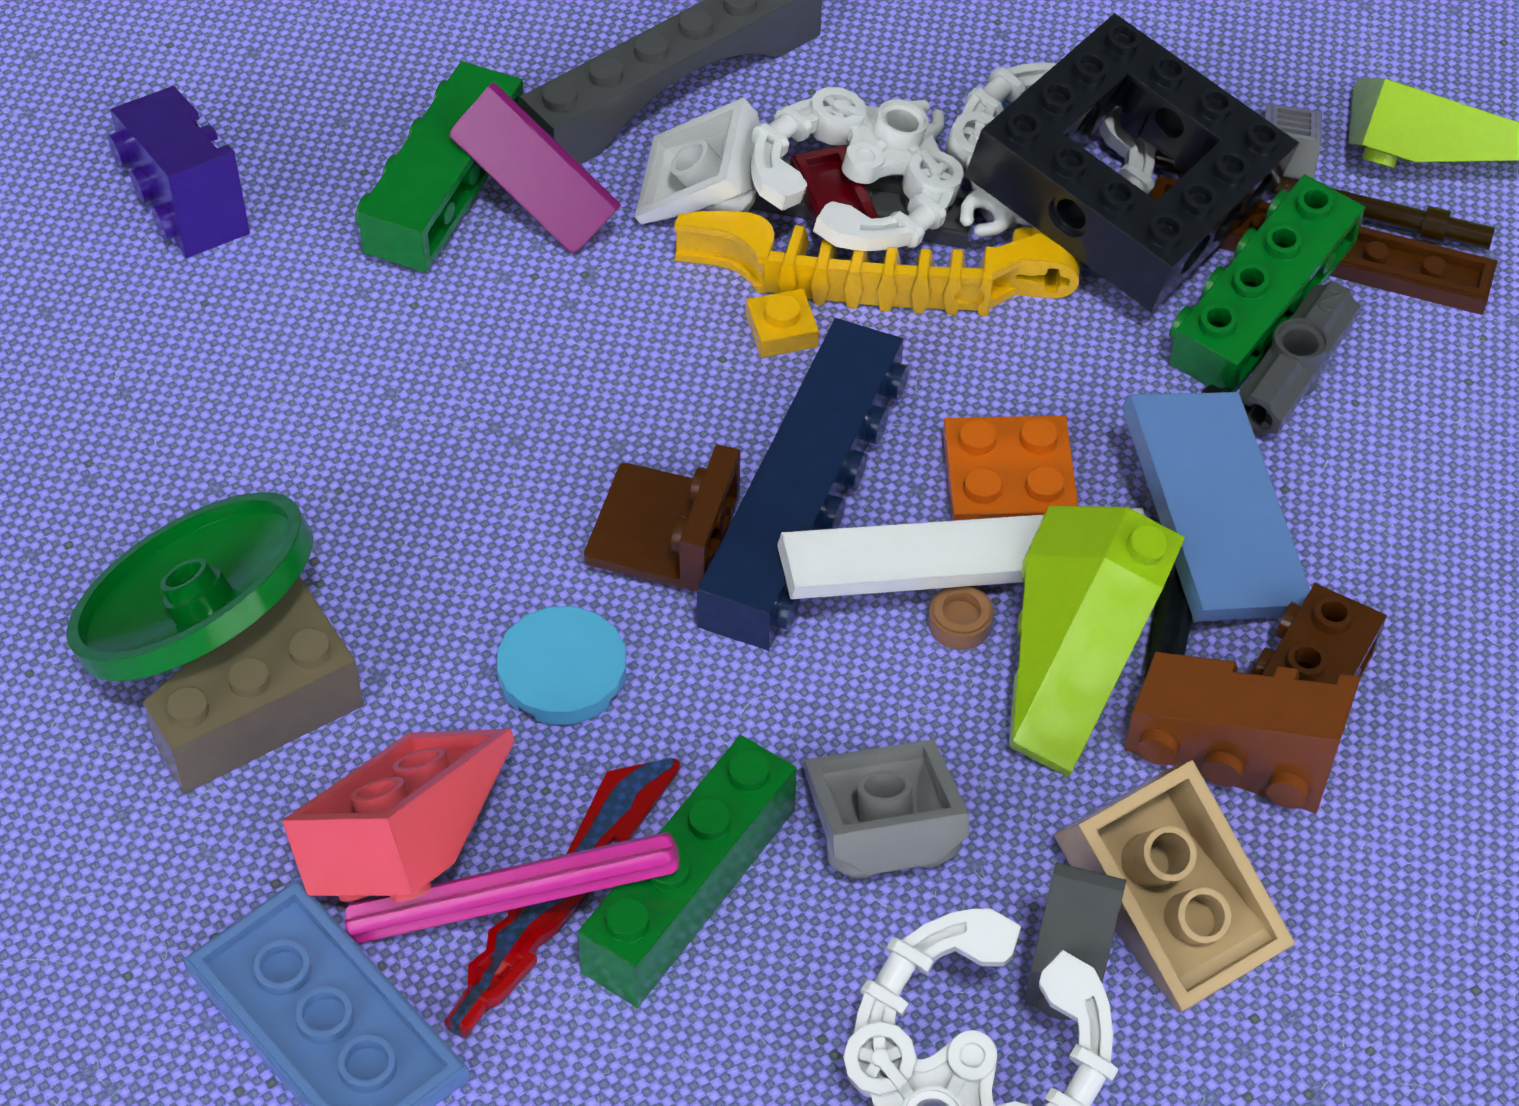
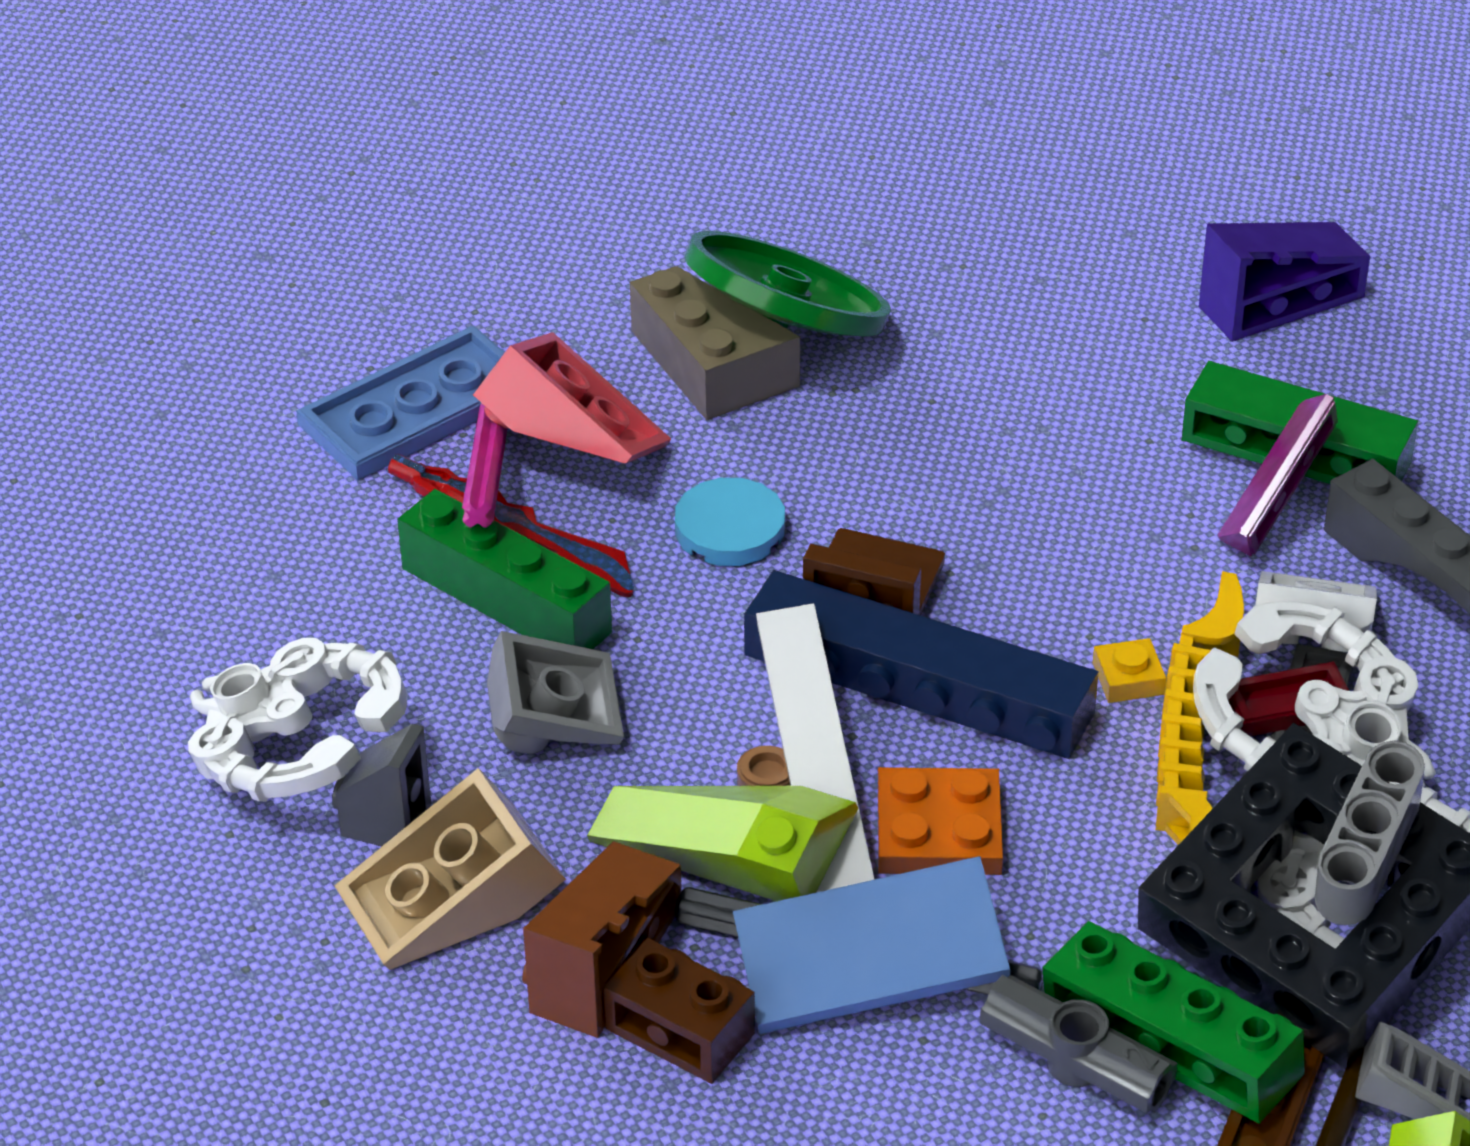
camera: 95 degrees right, 10 degrees down
(1139, 73) = (1365, 856): none -> light grey beam

